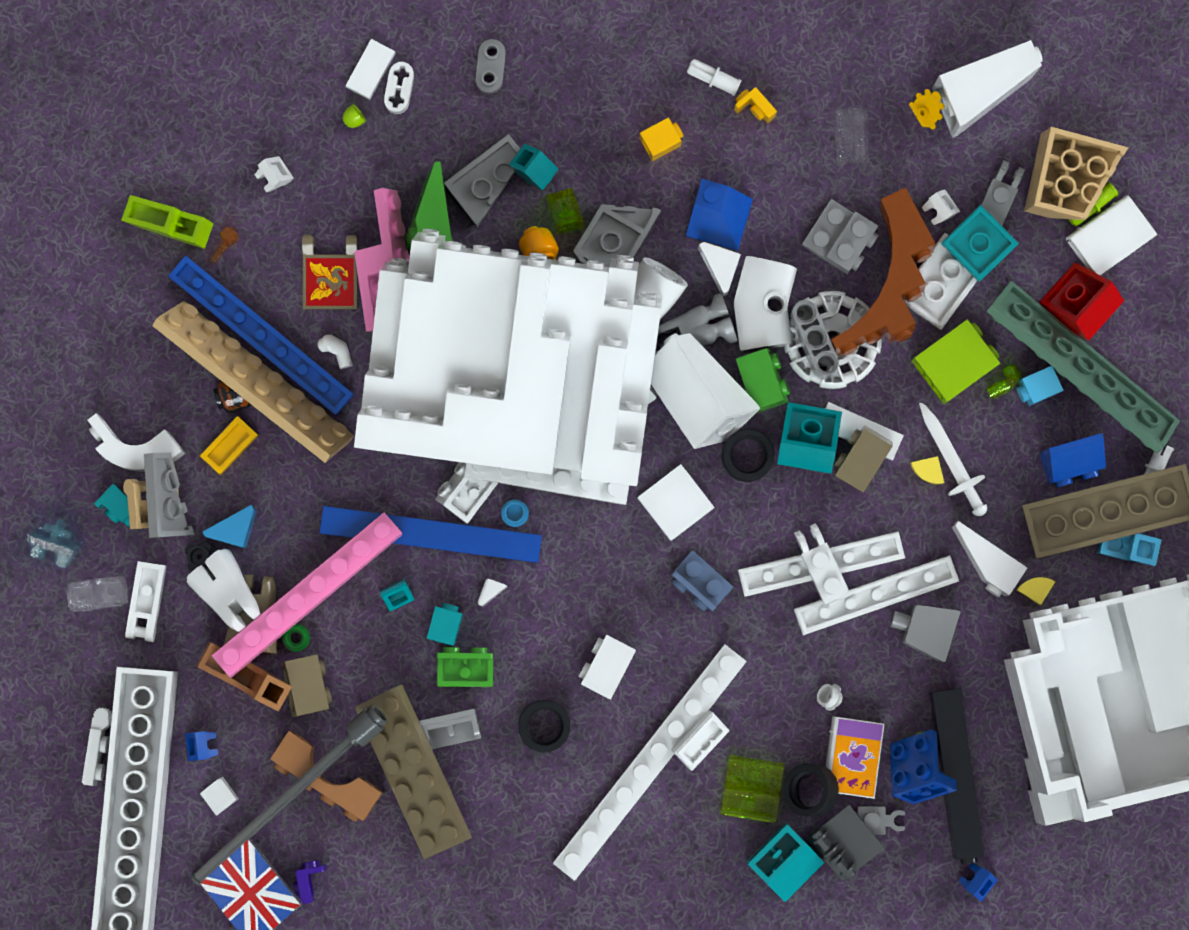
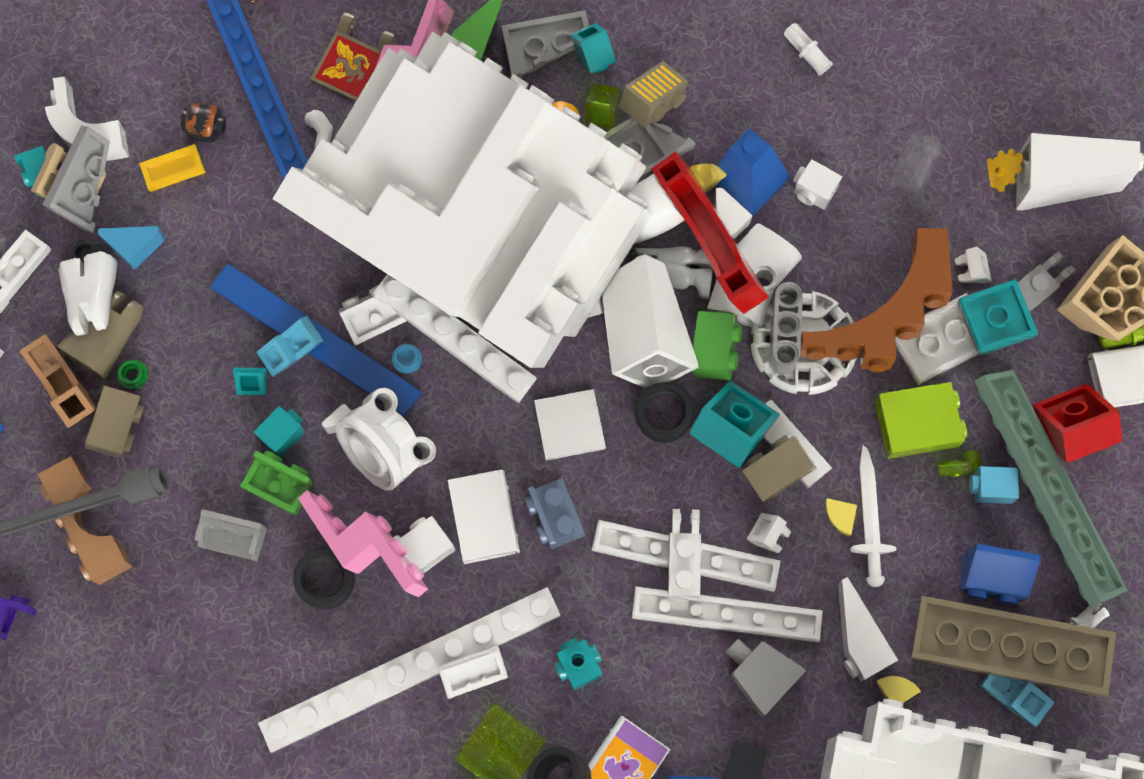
camera: 30 degrees right, 10 degrees down
(253, 380) = (224, 115): tan plate -> none
(307, 595) = (161, 335): bright pink plate -> none
(414, 551) = (289, 346): none -> medium azure slope
(416, 775) = (170, 563): dark tan plate -> none
(535, 594) = (382, 441): none -> white piece
(564, 684) = (363, 542): none -> bright pink bracket
(605, 185) = (653, 94): none -> dark tan brick
(645, 612) = (483, 516): none -> white piece
(661, 138) = (728, 79): yellow brick -> none
(683, 233) = (708, 175): none -> light yellow tile
(743, 309) = (712, 234): none -> red arch
(760, 105) = (839, 91): yellow bracket -> none
(778, 198) = (816, 184): none -> white brick
(788, 700) = (581, 675): none -> teal brick
(829, 696) = (628, 693): white plate -> none
(841, 237) = (860, 250): light grey plate -> none
(877, 513) = (767, 531): none -> white tile

